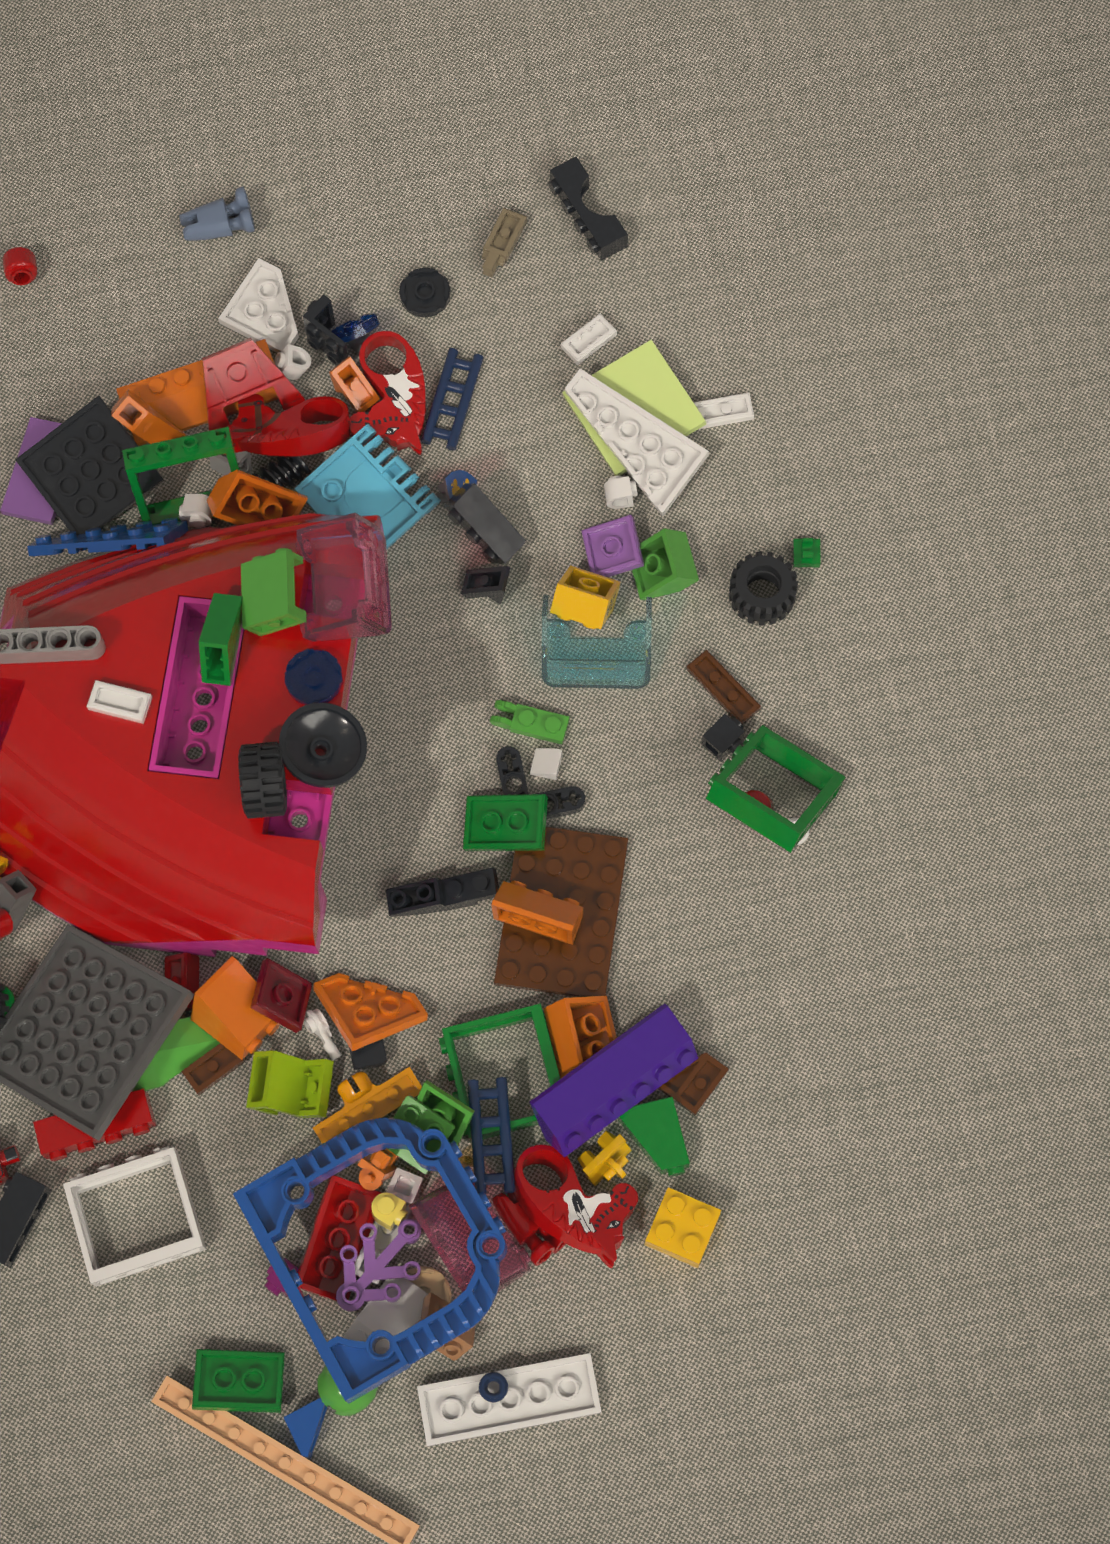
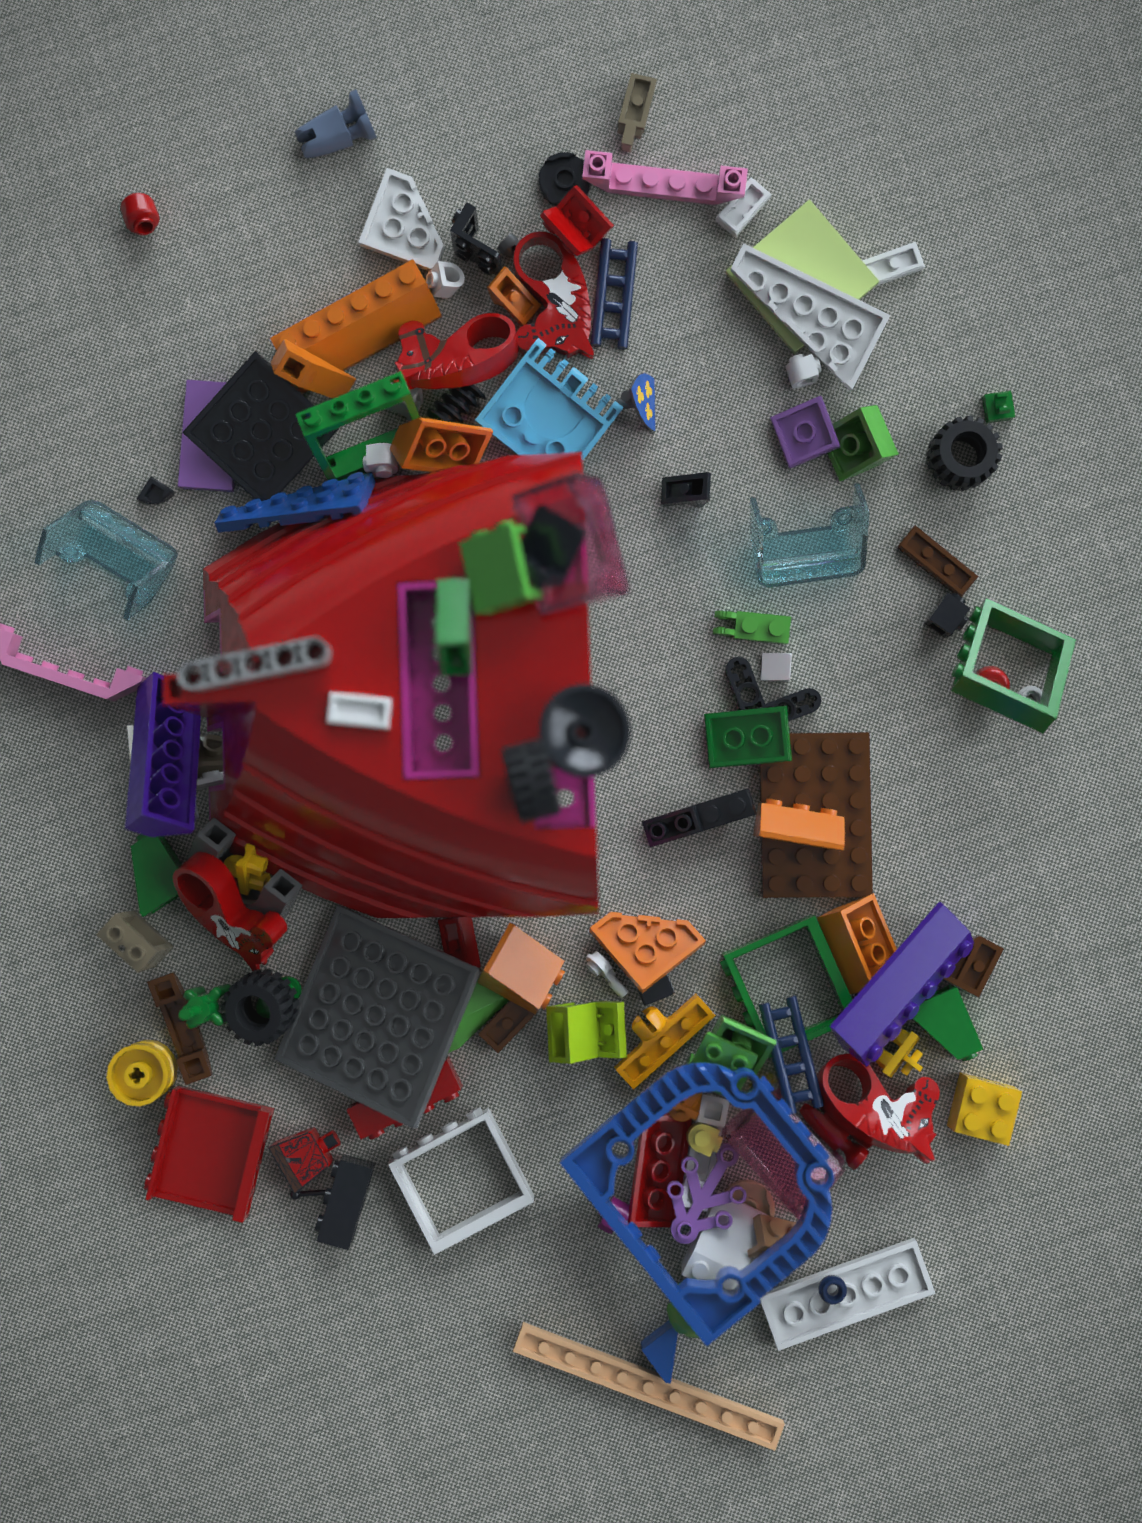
camera: 10 degrees left, 15 degrees up
(238, 1380) = (591, 1318): green tile -> none
(239, 374) = (392, 305): wing -> none
(281, 995) = (562, 948): dark red tile -> none
(313, 677) = (557, 652): clear blue tile -> none
(322, 580) = (550, 547): none -> black bracket
(353, 329) = (502, 235): clear blue tile -> none
(426, 329) = (577, 222): none -> red bracket
(484, 524) = (675, 429): black brick -> none
(514, 307) = (663, 182): none -> bright pink slope
(585, 597) = (790, 492): yellow brick -> none
(603, 232) = (739, 85): black arch -> none

